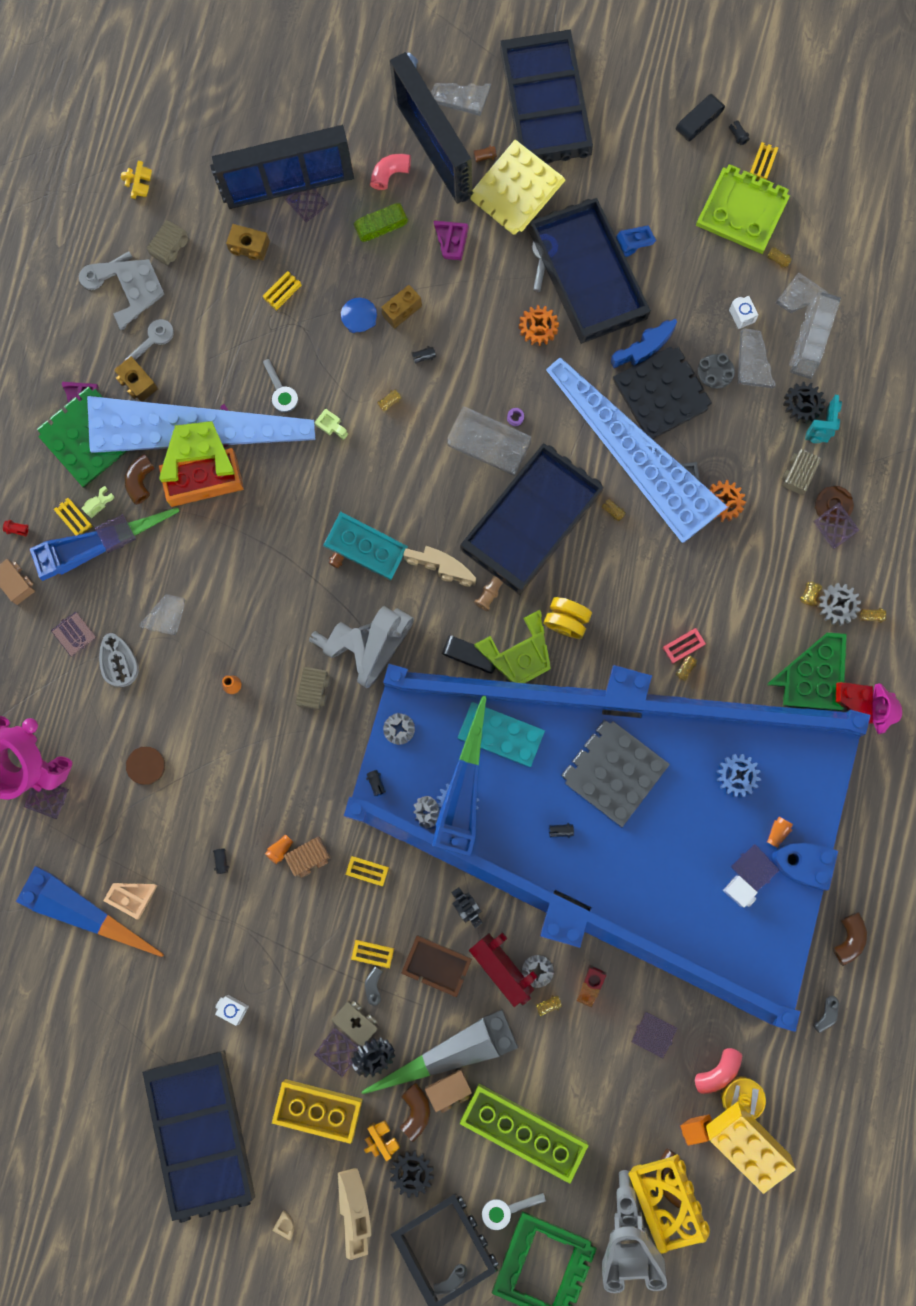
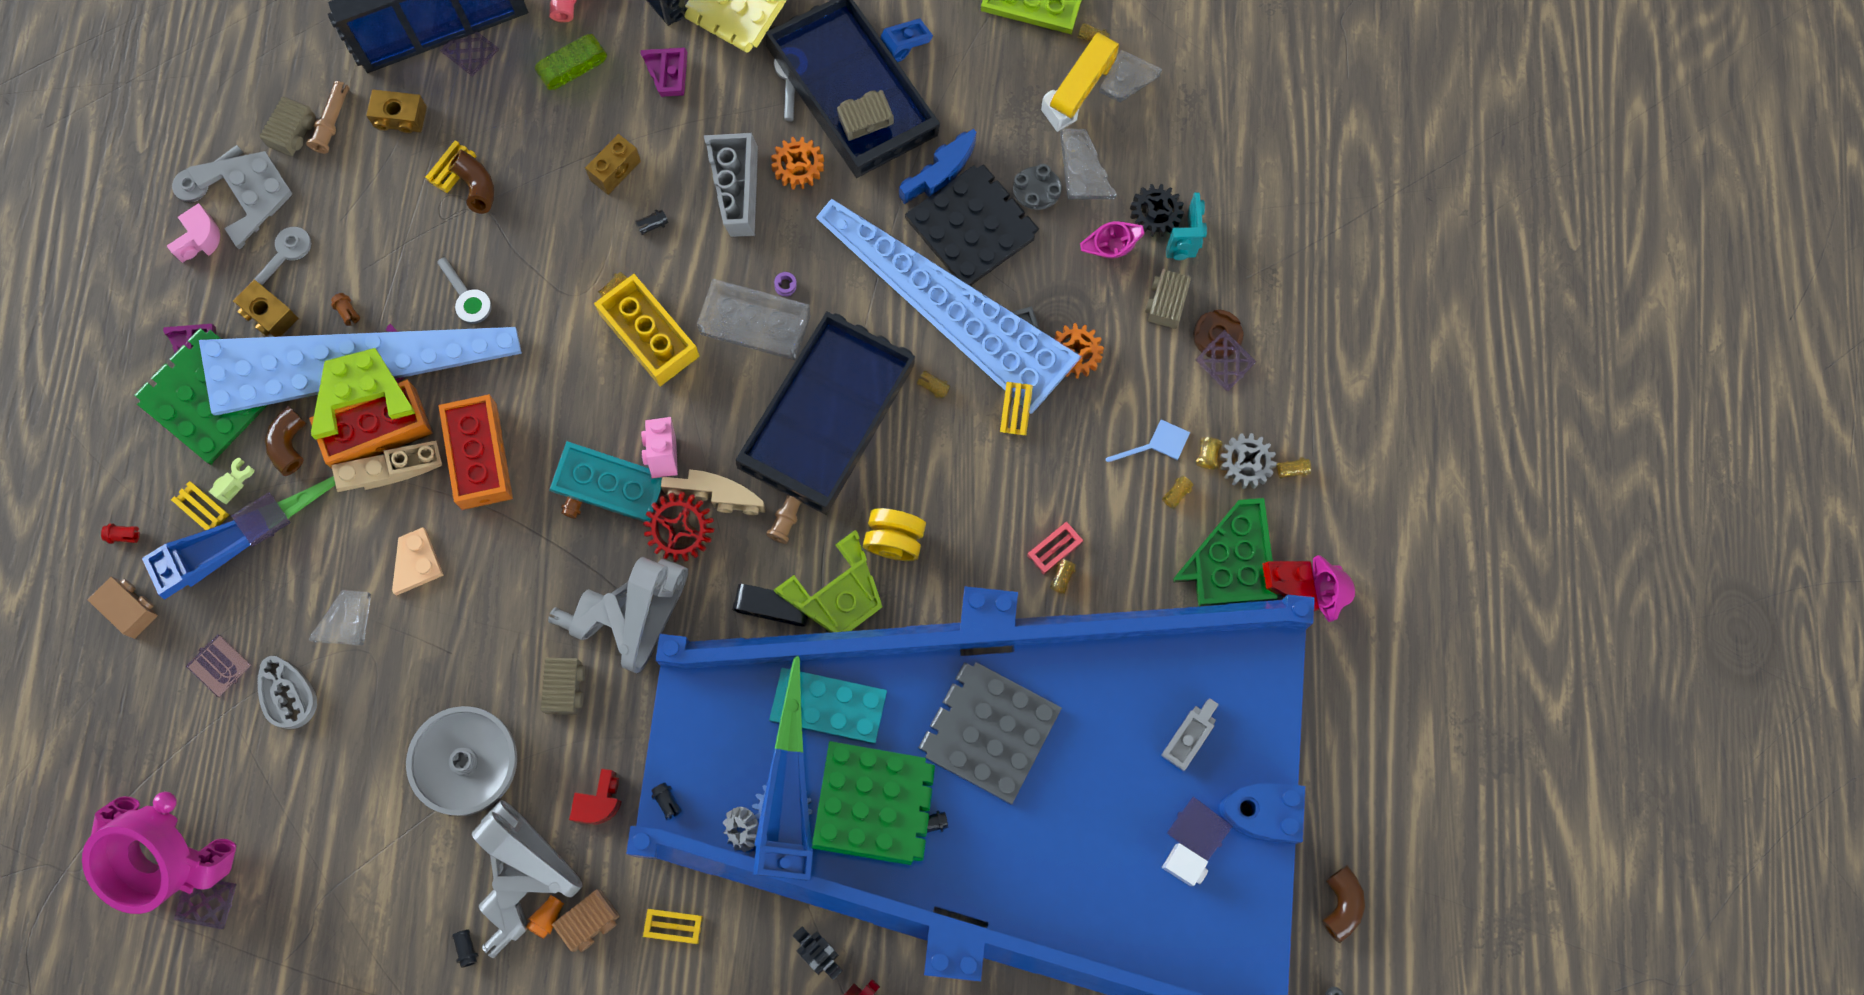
camera: 20 degrees left, 5 degrees down
(96, 315) = (201, 234): none -> bright pink brick
(140, 173) = (239, 62): yellow hips -> none
(145, 765) = (341, 832): reddish brown tile -> none
(192, 387) = (342, 304): none -> dark orange pin
(194, 246) = (325, 125): none -> medium nougat pin
(209, 510) = (388, 468): none -> tan slope
(219, 581) = (415, 562): none -> light nougat wing
(234, 687) = (453, 699): orange cone -> none
(235, 730) = (461, 761): none -> light grey dish
(273, 508) = (475, 452): none -> brick
(273, 814) = (528, 868): none -> light grey connector
(300, 303) = (478, 180): none -> reddish brown cylinder
(329, 779) = (598, 808): none -> red brick
(330, 423) = (539, 328): yellowish green plate -> none
(359, 315) = (558, 183): blue dish -> none
(402, 737) = (693, 731): light grey gear -> none
(404, 582) = (666, 521): none -> red gear
(407, 526) = (660, 447): none -> bright pink brick
(409, 436) = (647, 330): none -> yellow brick
(491, 325) = (735, 177): none -> light grey wedge
(523, 810) = (873, 804): none -> green hinge
(595, 296) = (865, 114): none -> dark tan brick
(672, 537) = (1007, 404): none -> yellow tile
(743, 782) = (1148, 700): medium blue gear -> none
(760, 800) = (1190, 735): none -> light grey hinge
(766, 420) = (1113, 239): none -> dark pink hat
(767, 289) = (1093, 62): none -> yellow beam
(779, 831) = (1223, 774): orange cone -> none
(781, 578) = (1166, 440): none -> light blue piece
(782, 619) = (1178, 491): none -> clear yellow pin
(814, 334) = (1154, 123): clear brick -> none

